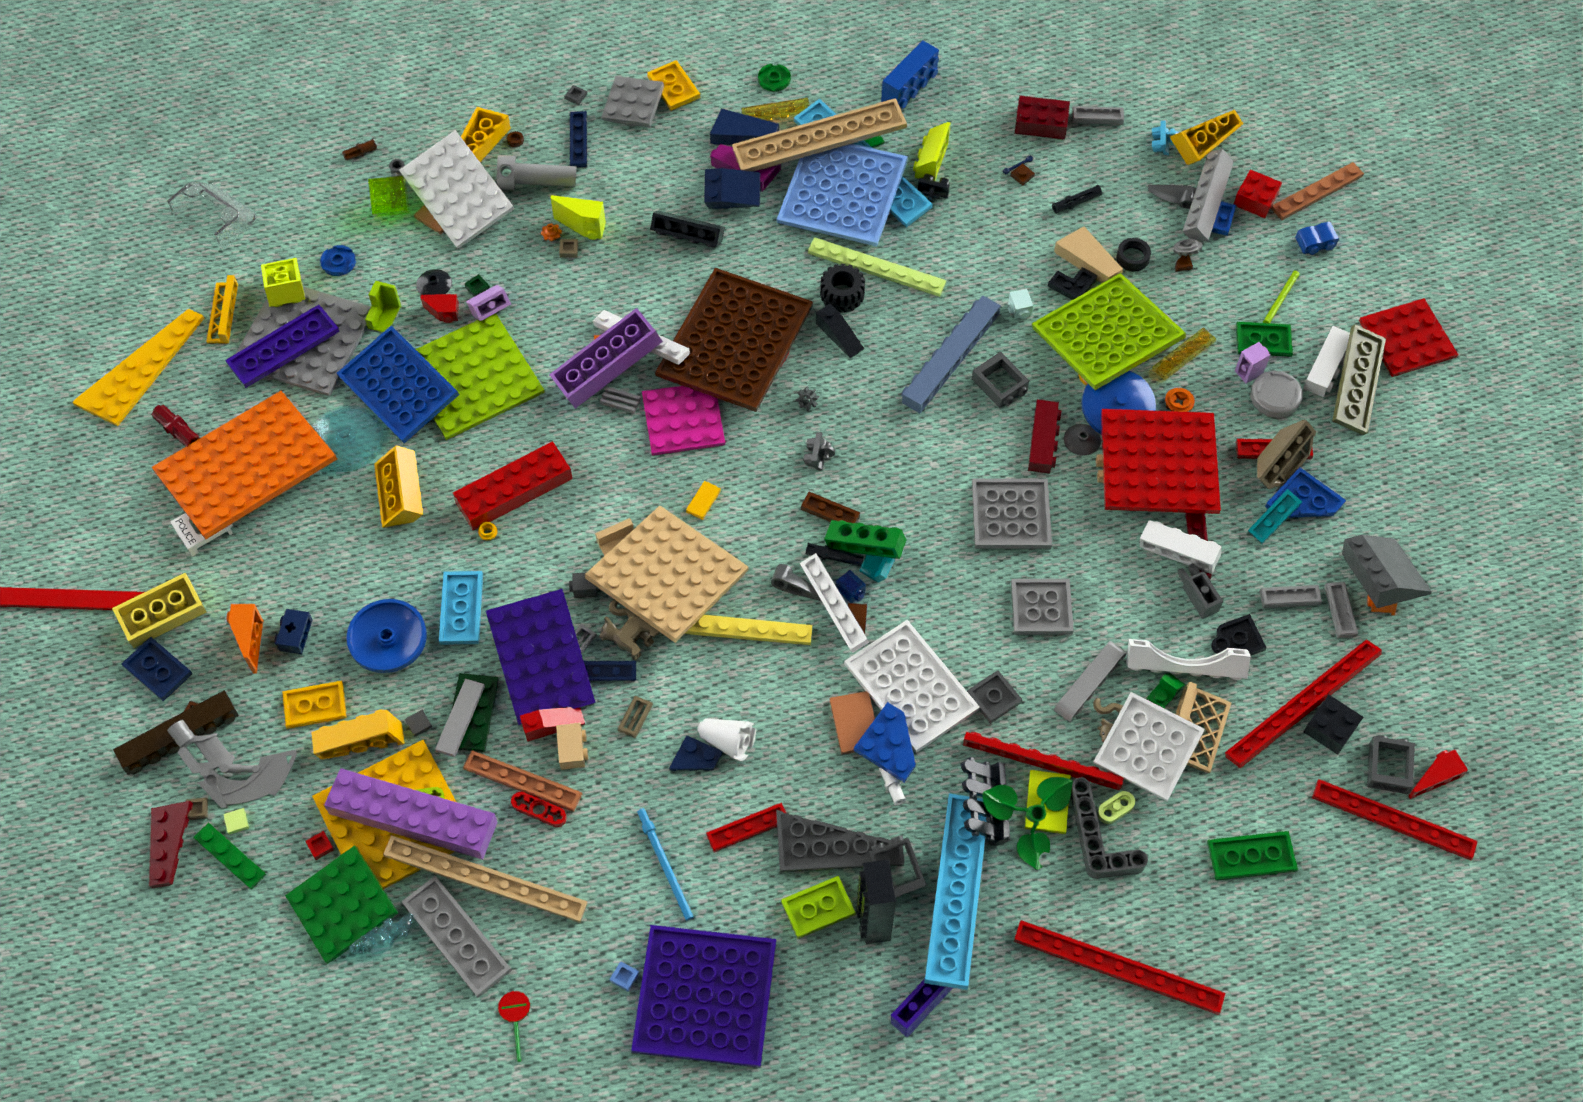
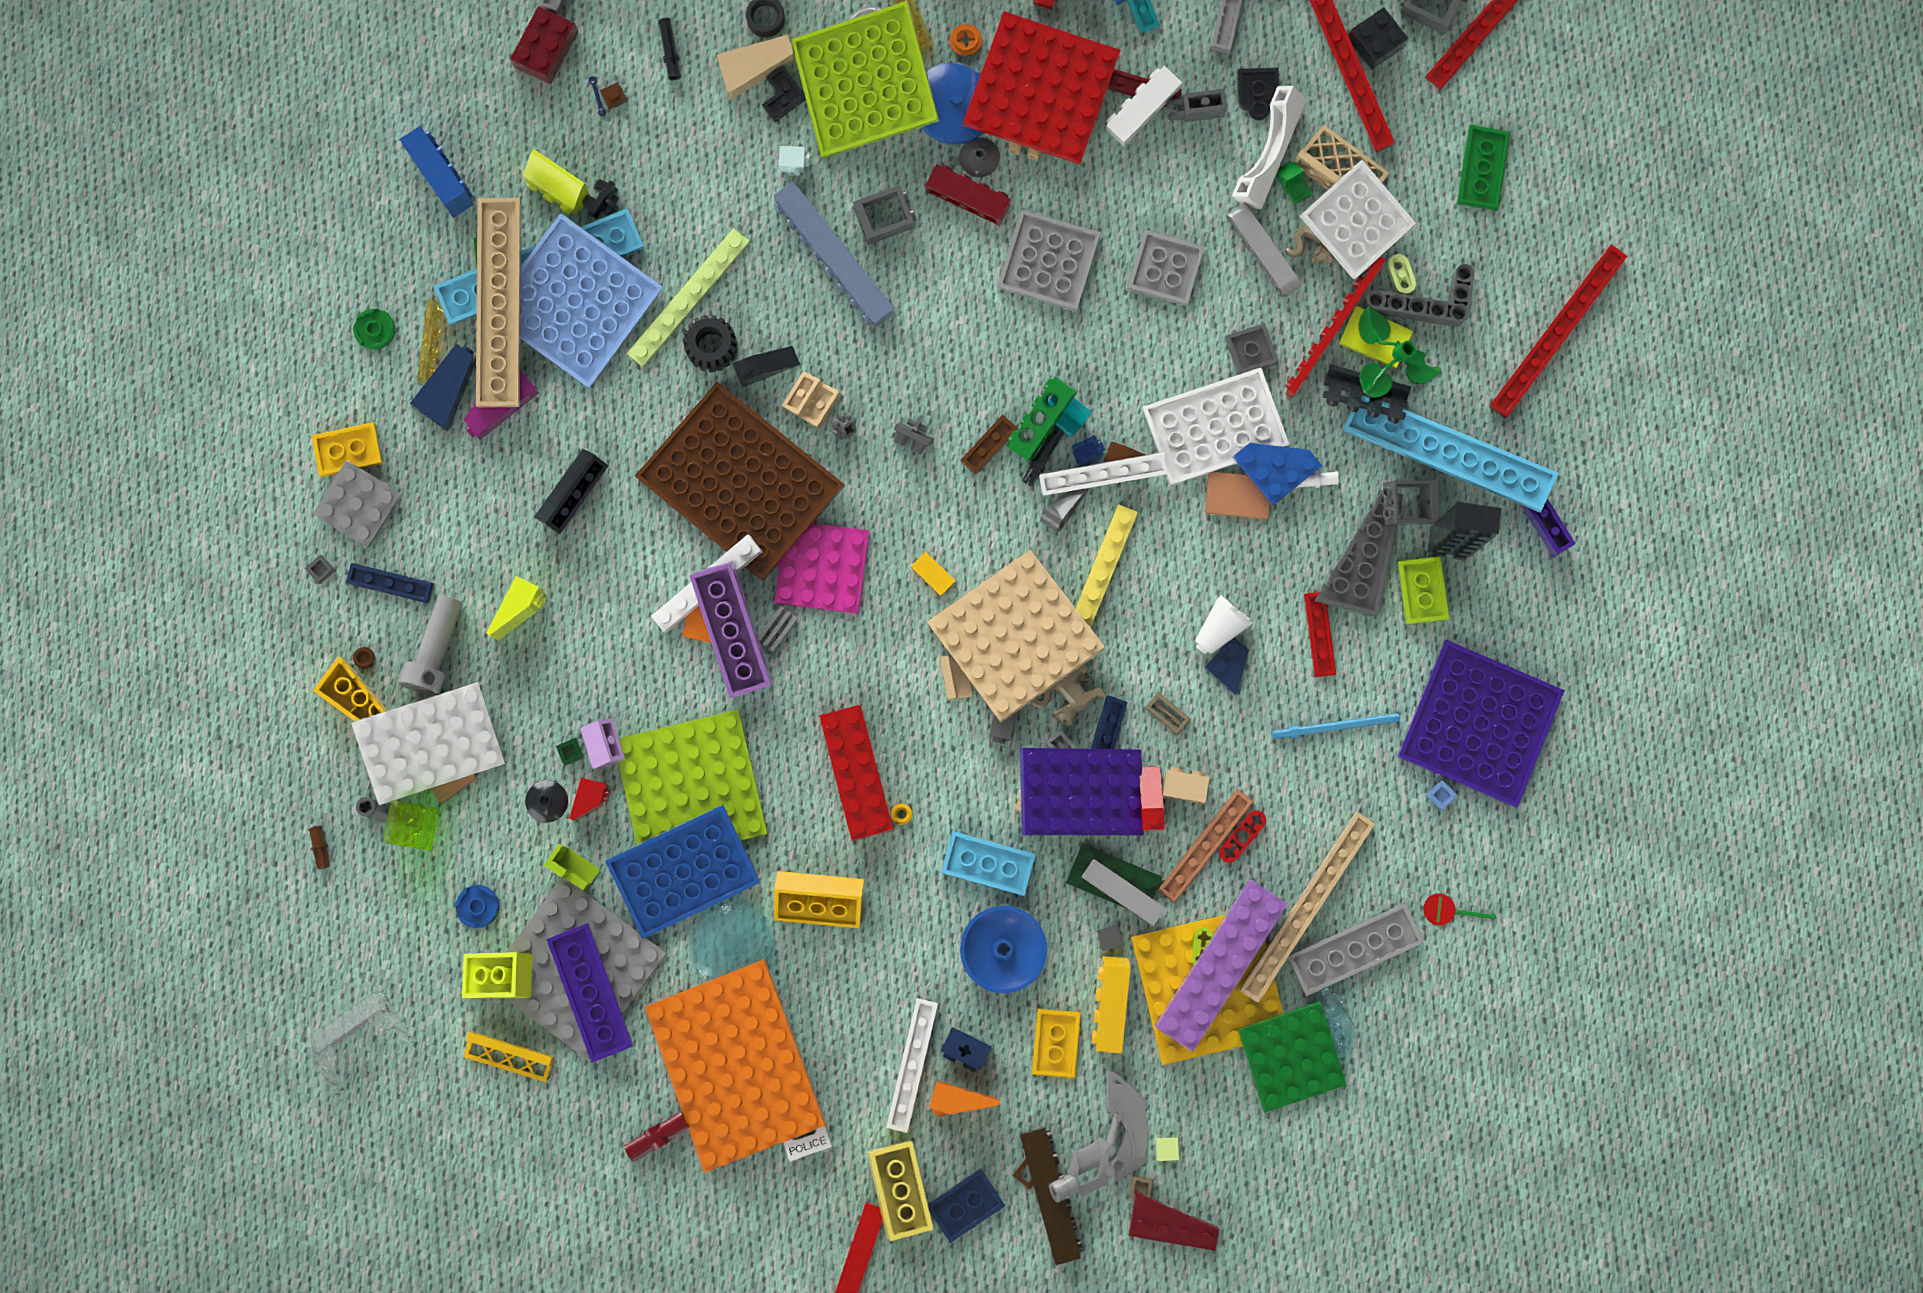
camera: 75 degrees left, 20 degrees up
(125, 384) = (575, 1186): yellow wing -> none
(229, 856) = (1203, 1162): green plate -> none
(272, 595) = (912, 1065): none -> white plate
(319, 845) = (1220, 1067): red plate -> none
(551, 232) = (520, 648): orange plant -> none
(568, 248) = (550, 634): dark tan plate -> none
(731, 188) = (534, 424): dark blue slope -> none
(822, 373) = (811, 400): none -> tan slope

